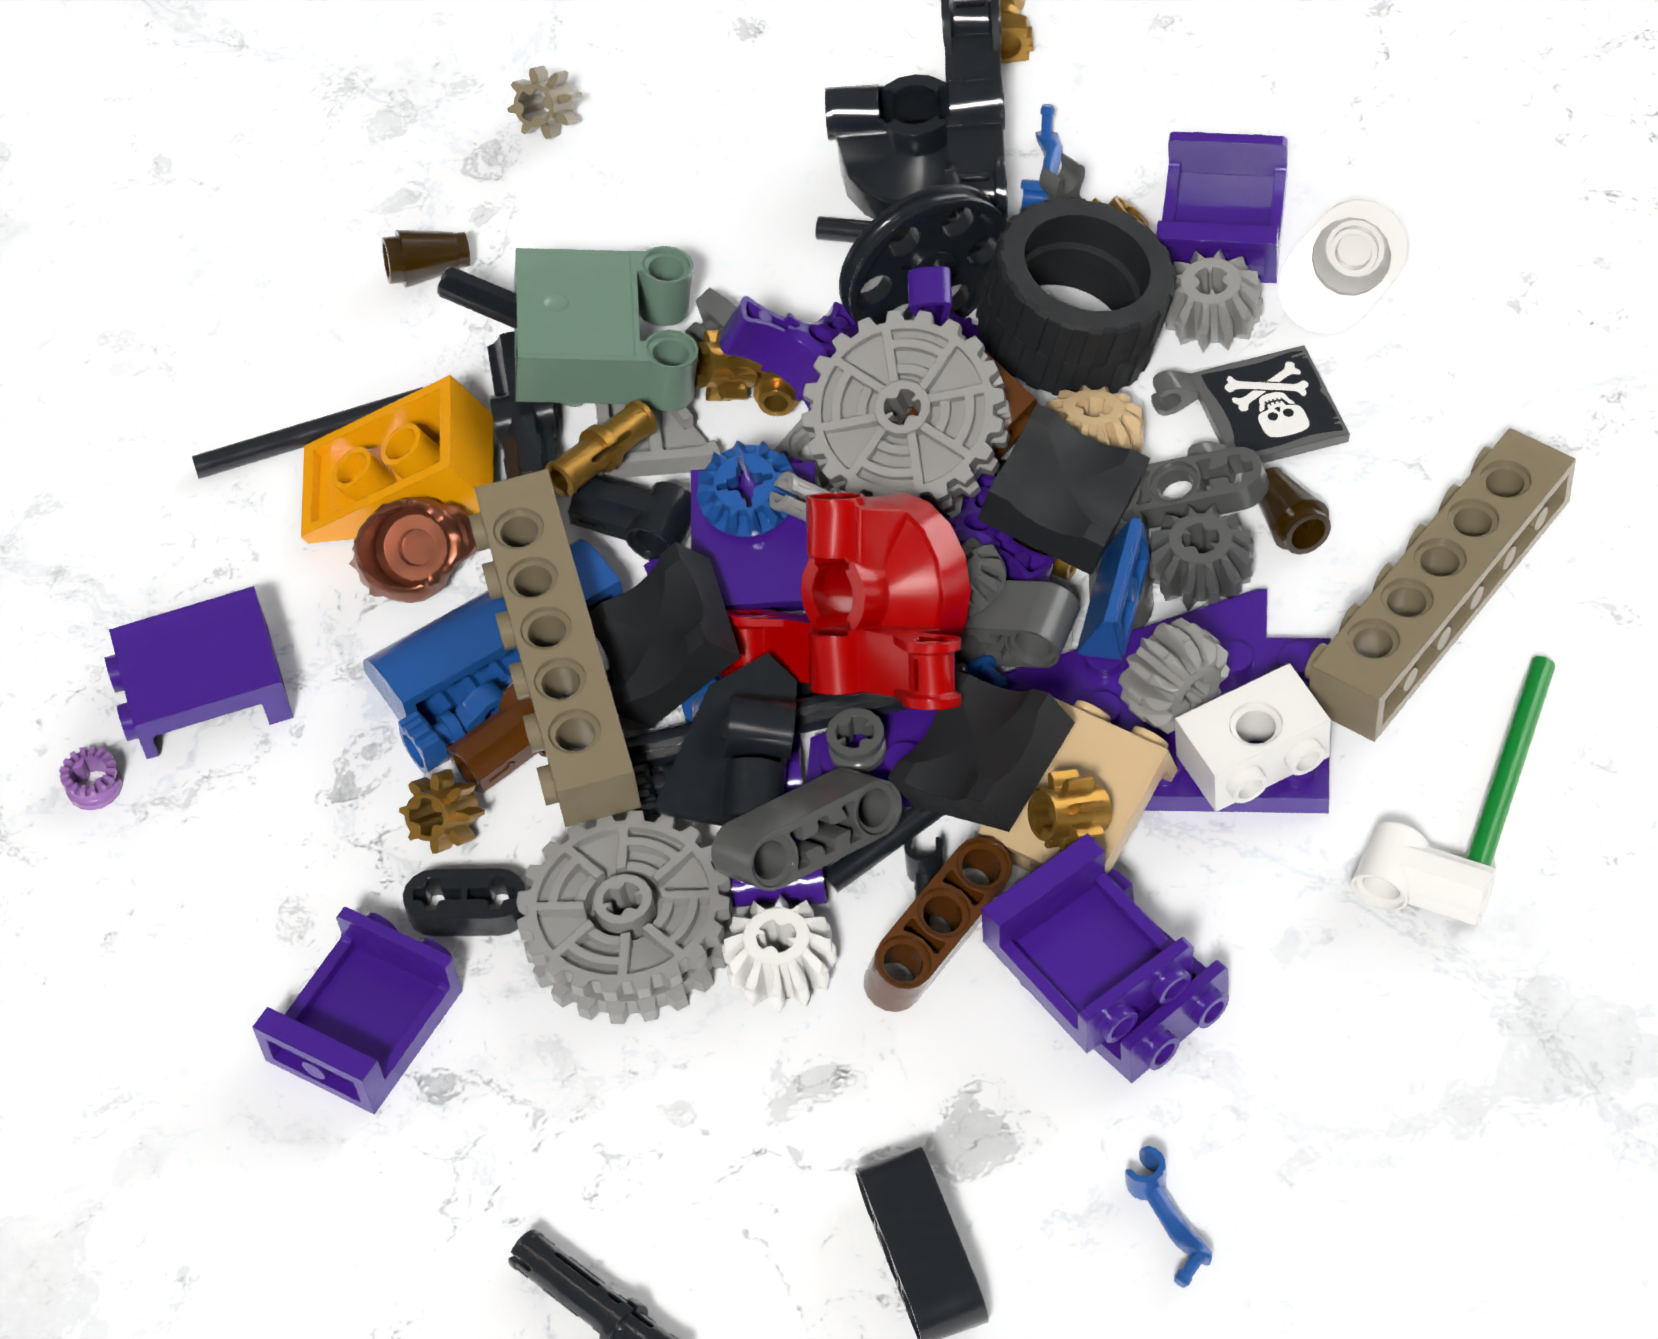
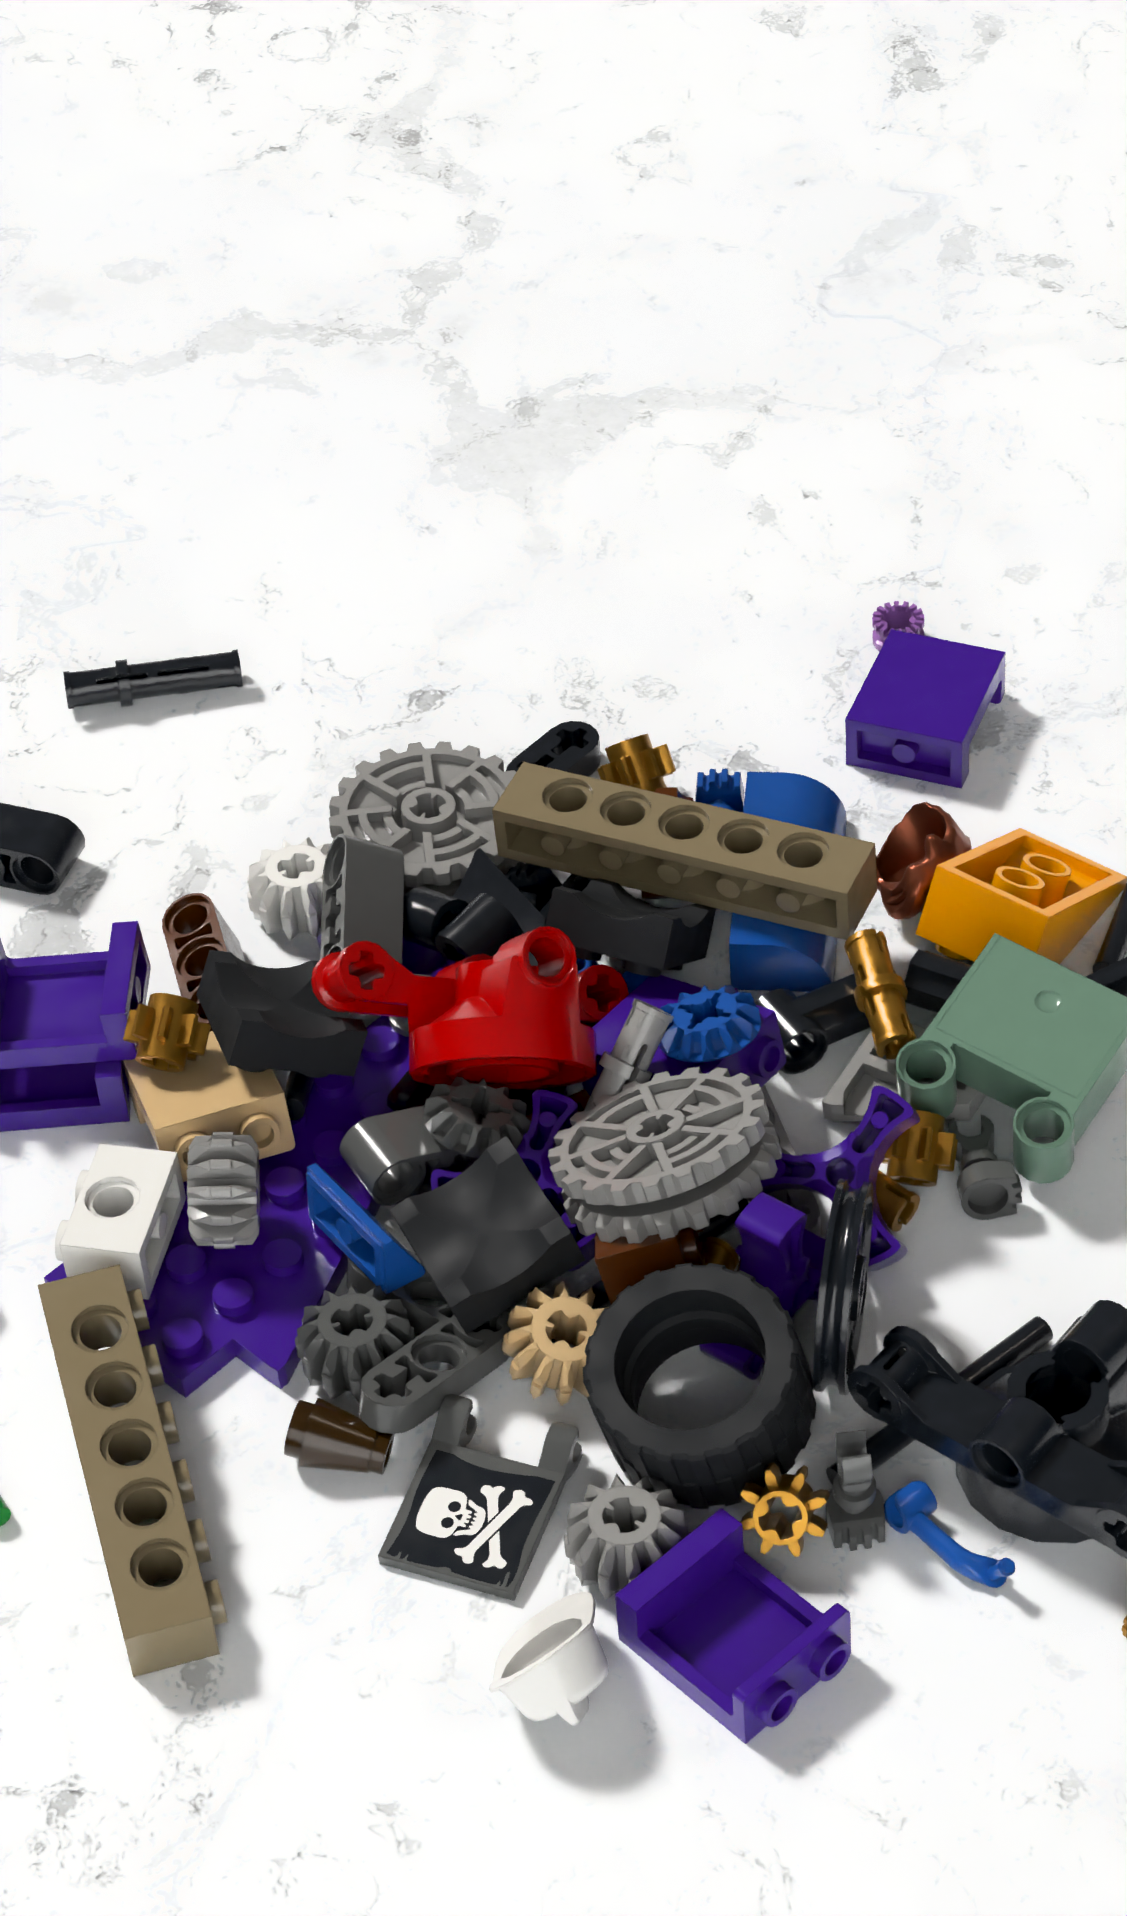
camera: 125 degrees right, 10 degrees down
(362, 1011) = (516, 665): dark purple panel -> none

